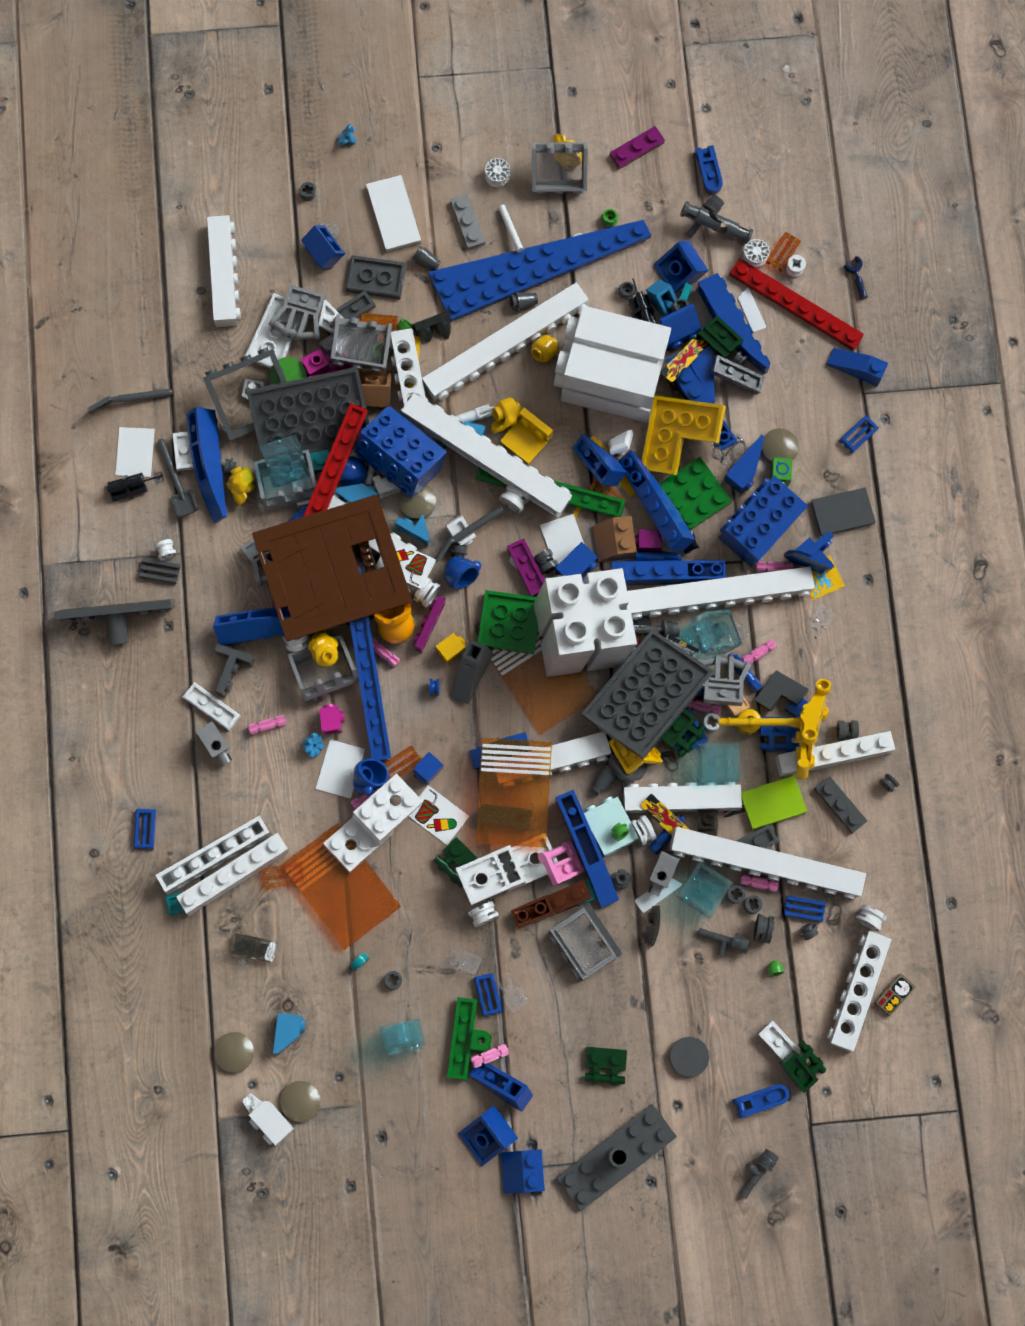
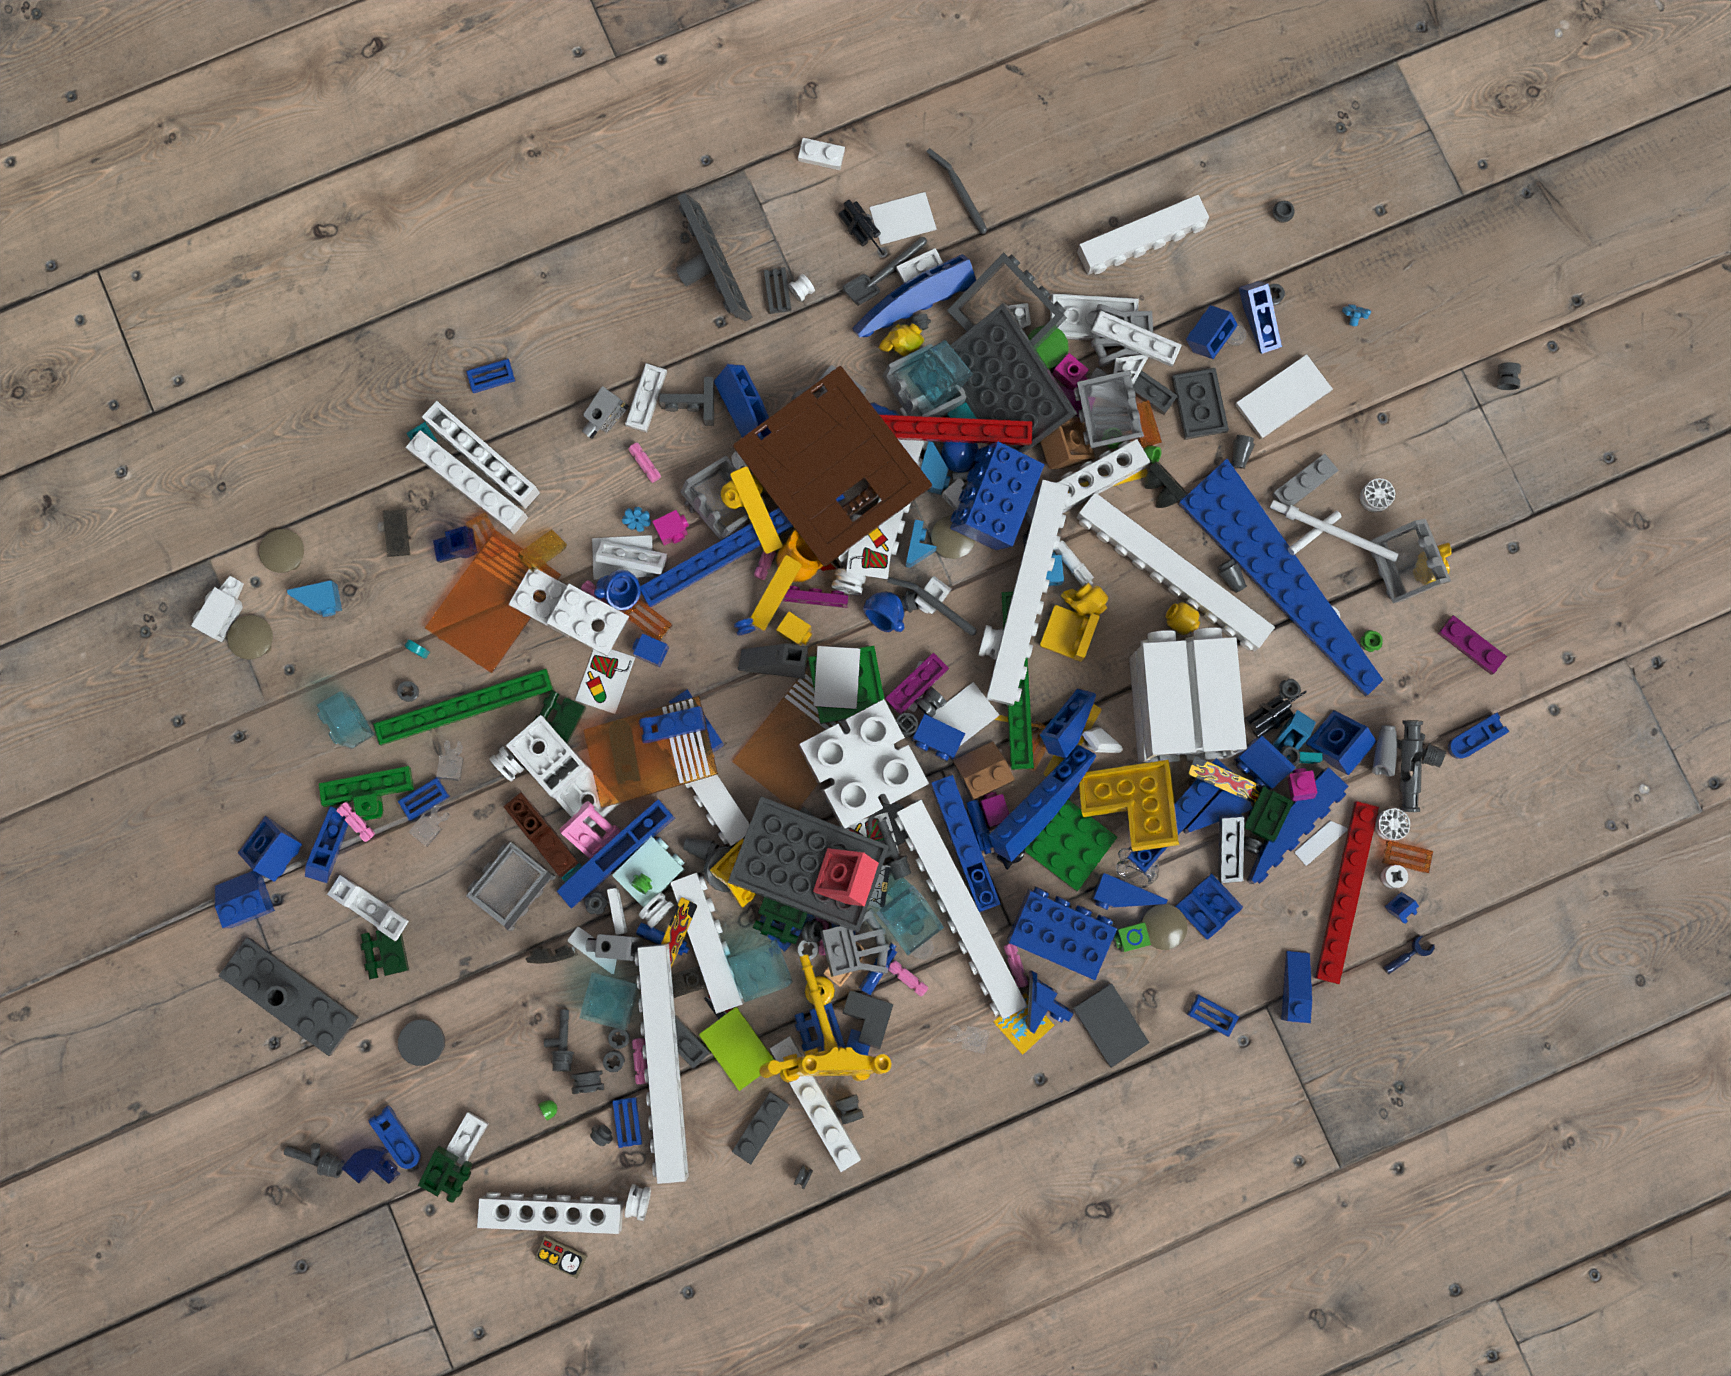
camera: 75 degrees right, 5 degrees up
(55, 497) = (821, 154): none -> white plate
(242, 160) = (1283, 211): none -> dark grey plate
(283, 900) = (456, 544): none -> clear blue brick
(308, 303) = (1136, 338): none -> white tile
(313, 830) = (542, 550): none -> clear yellow plate
(319, 205) = (1261, 315): none -> blue slope
(344, 759) = (631, 557): none -> white plate
(346, 640) = (756, 510): none -> yellow sticker
(417, 650) = (775, 592): none -> yellow sticker
(421, 938) = (463, 707): none -> green tile
(438, 44) = (1509, 376): none -> dark grey wheel
(490, 238) = (1293, 513): none -> white bar
(499, 765) = (672, 724): none -> blue plate
(501, 627) = (836, 677): none -> white sticker
(565, 1065) = (369, 907): none -> white slope
(631, 862) = (617, 911): none -> white tile
(668, 666) = (846, 876): none -> coral slope
(699, 237) = (1385, 751): none -> light grey piece
(700, 711) = (811, 931): none -> dark grey bush
(706, 304) = (1302, 785): none -> dark pink brick
(772, 1129) = (368, 1160): none -> clear blue brick
(775, 407) = (1209, 906): none -> blue slope
(820, 268) = (1402, 907): none -> blue tile

